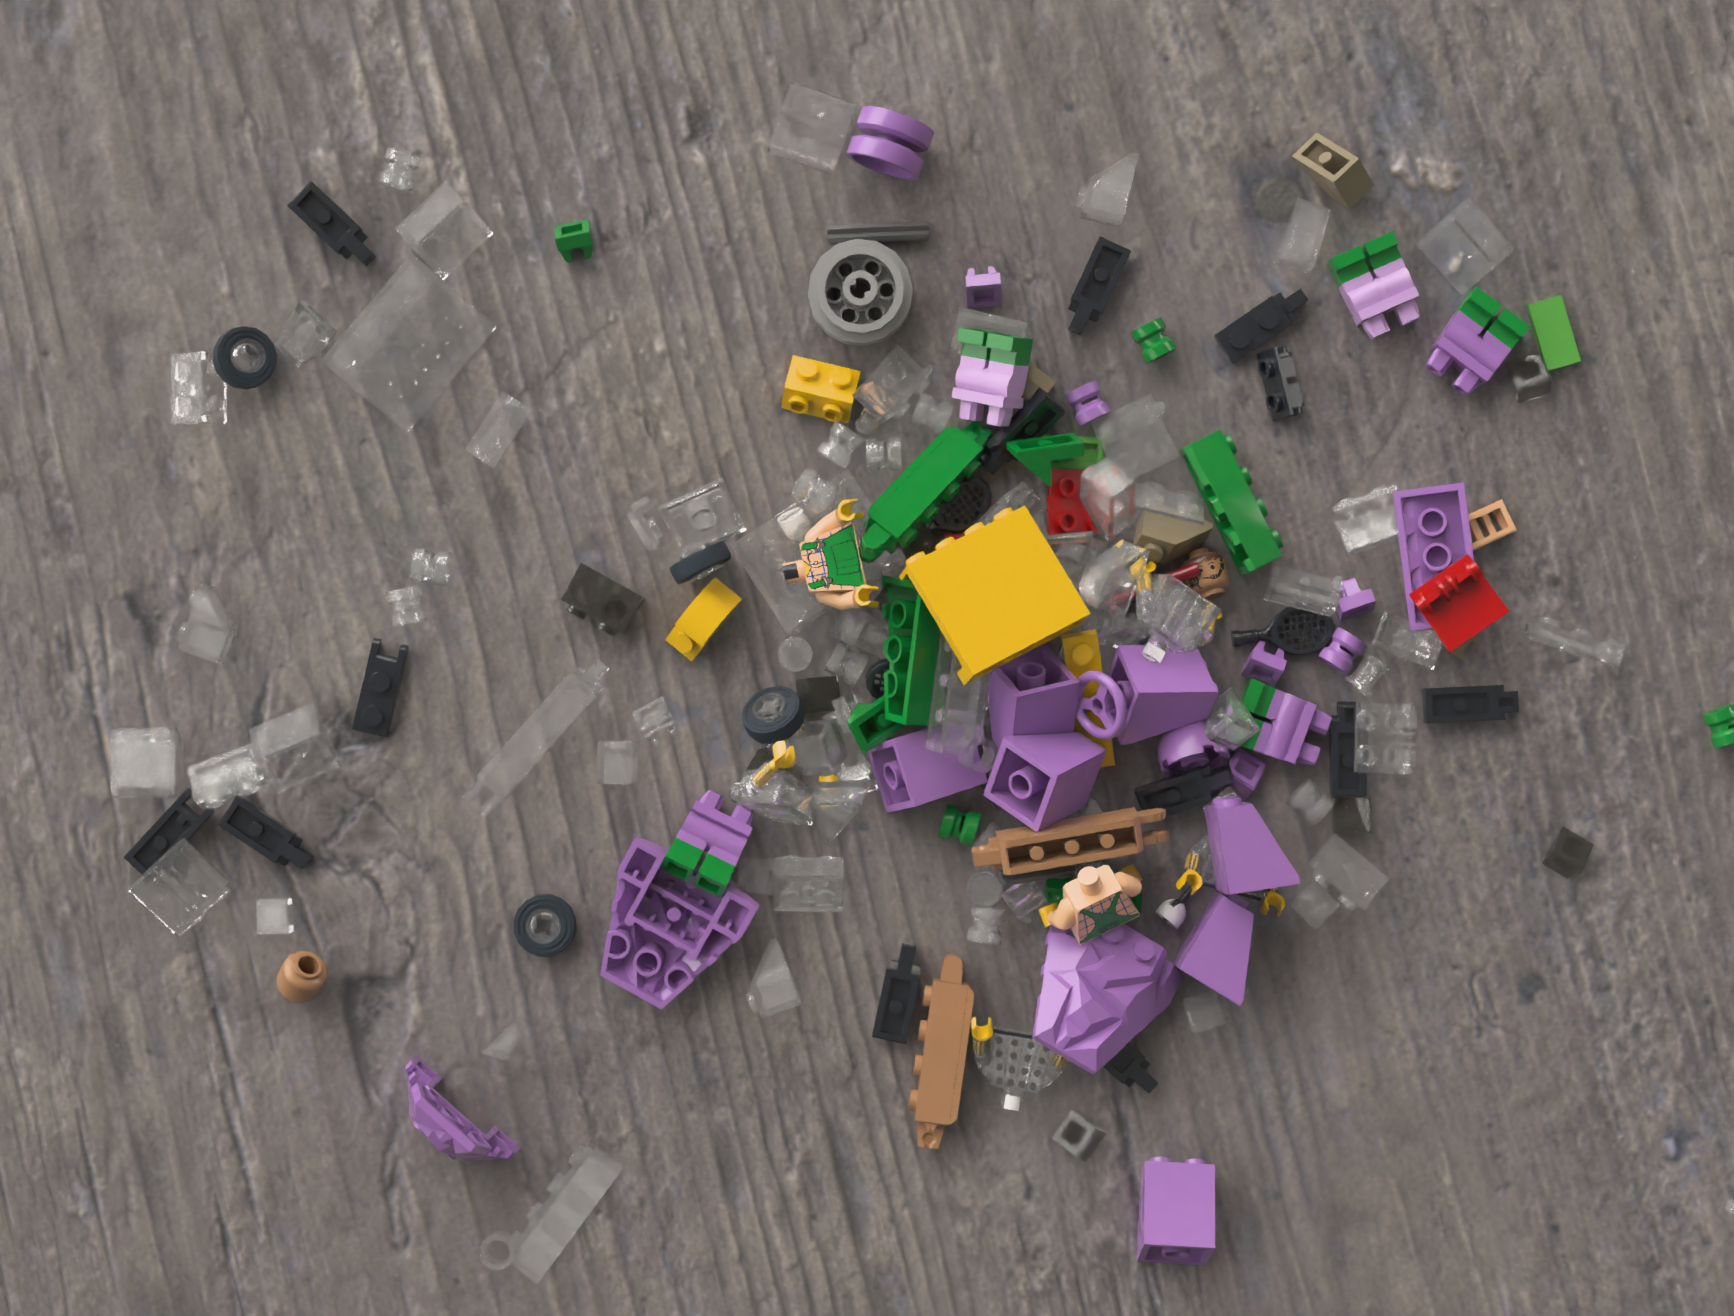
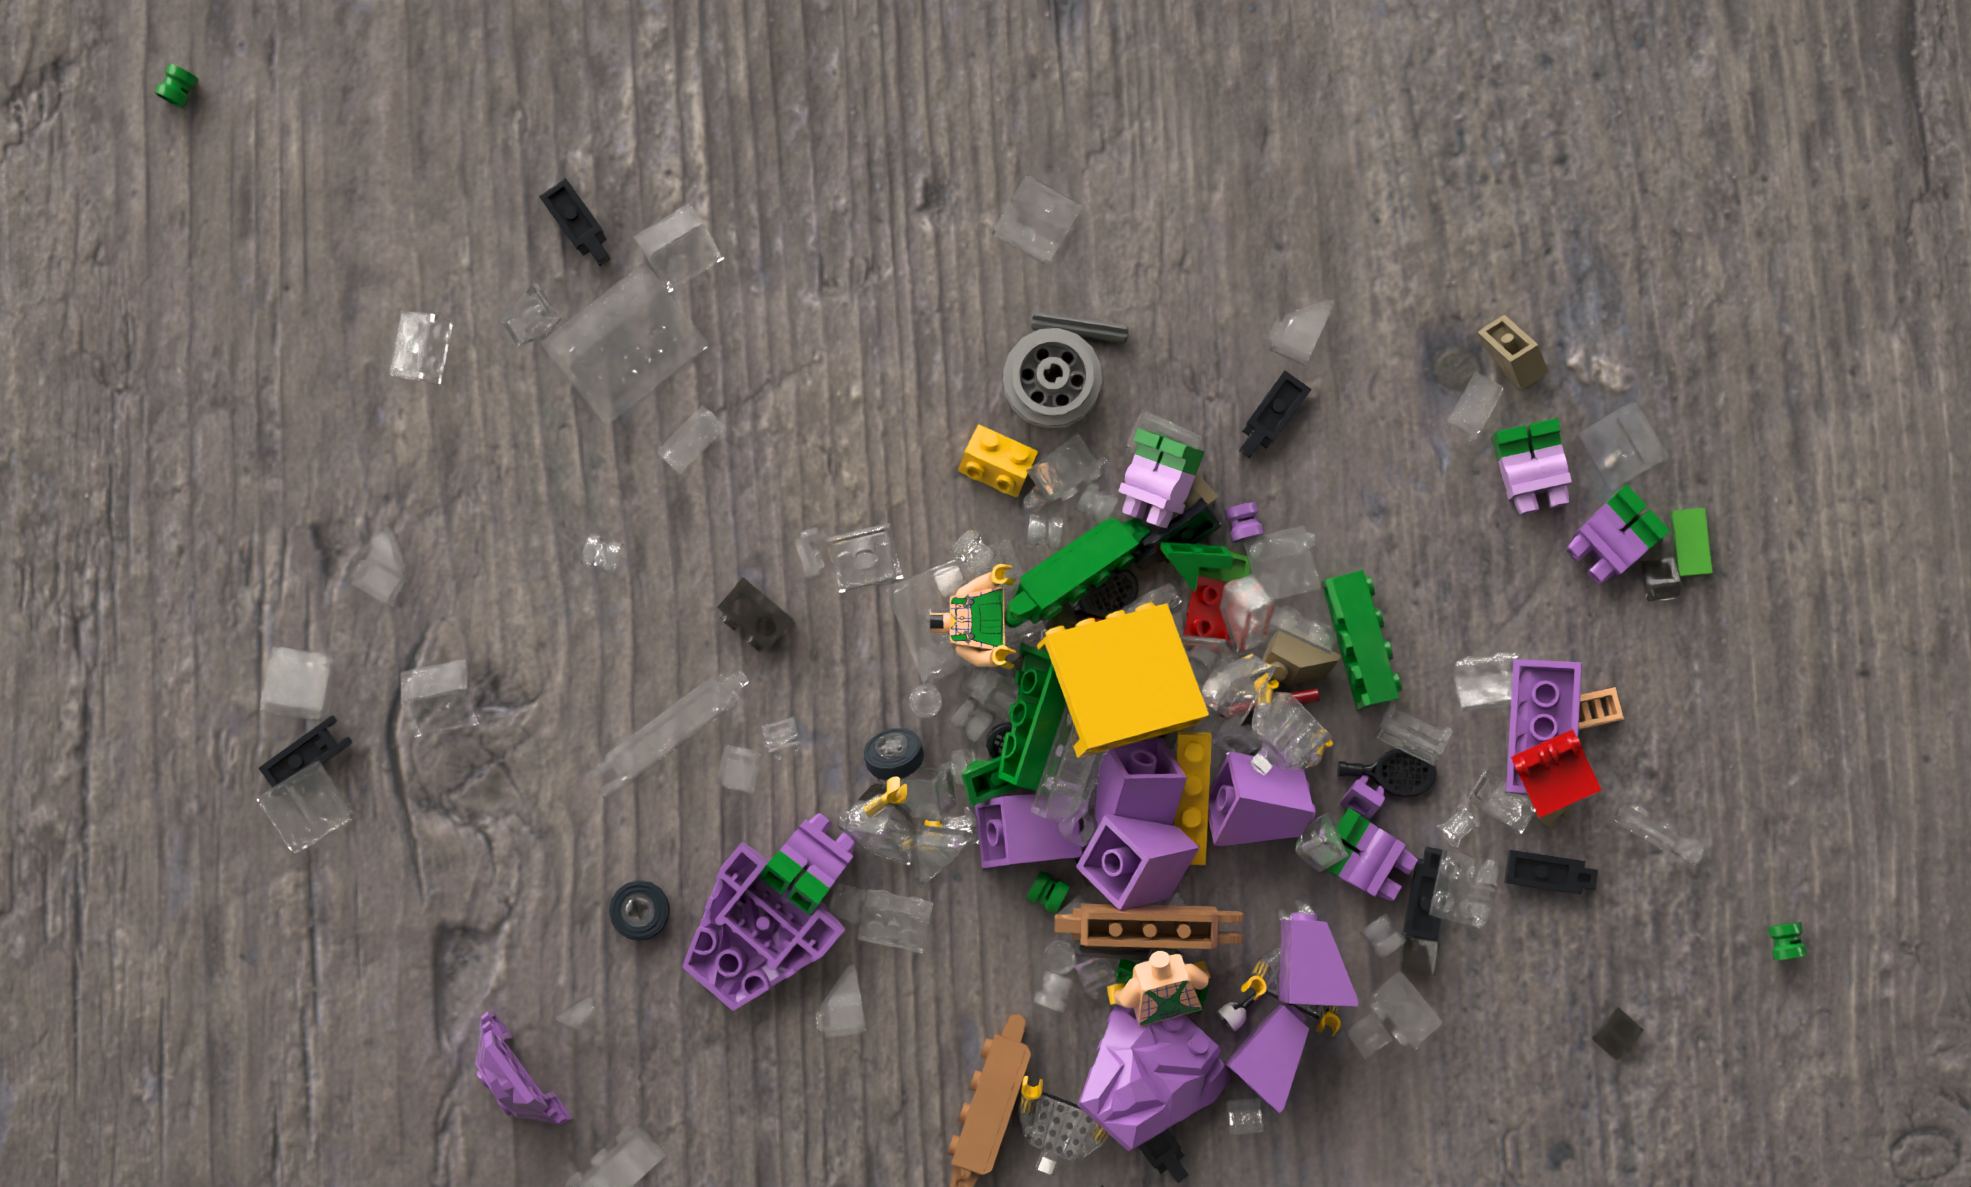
camera: 10 degrees right, 5 degrees down
(225, 777) = (370, 712): clear bracket -> none
(232, 362) = (458, 330): black wheel -> none
(264, 833) = (394, 772): black hinge -> none
(274, 916) = (387, 851): clear slope -> none
(301, 977) = (401, 913): medium nougat head -> none
(379, 690) = (530, 660): black hinge -> none
(398, 168) = (647, 184): clear wheel -> none
(406, 606) = (571, 586): clear wheel -> none
(574, 236) = (797, 275): green tile -> none
(700, 562) = (854, 598): black wheel -> none
(703, 619) = (845, 651): yellow brick -> none
(818, 693) = (939, 743): clear smoke slope -> none
(839, 453) = (1000, 521): clear wheel -> none
(890, 143) = (1106, 247): medium lavender wheel -> none
(898, 997) = (958, 1045): black hinge -> none
(983, 289) = (1167, 398): medium lavender tile -> none
(1104, 704) = (1207, 803): medium lavender piece -> none
(1152, 341) = (1315, 476): green wheel -> none
(1184, 789) = (1266, 900): black hinge -> none
(1189, 748) = (1278, 864): medium lavender cylinder -> none
(1214, 574) = (1331, 705): medium nougat head -> none
(1246, 771) = (1324, 896): medium lavender slope -> none
(1259, 325) = (1418, 481): black hinge -> none
(1281, 399) = (1426, 523): black hinge -> none
(1338, 658) = (1439, 800): medium lavender wheel -> none
(1354, 601) = (1459, 755): medium lavender tile -> none

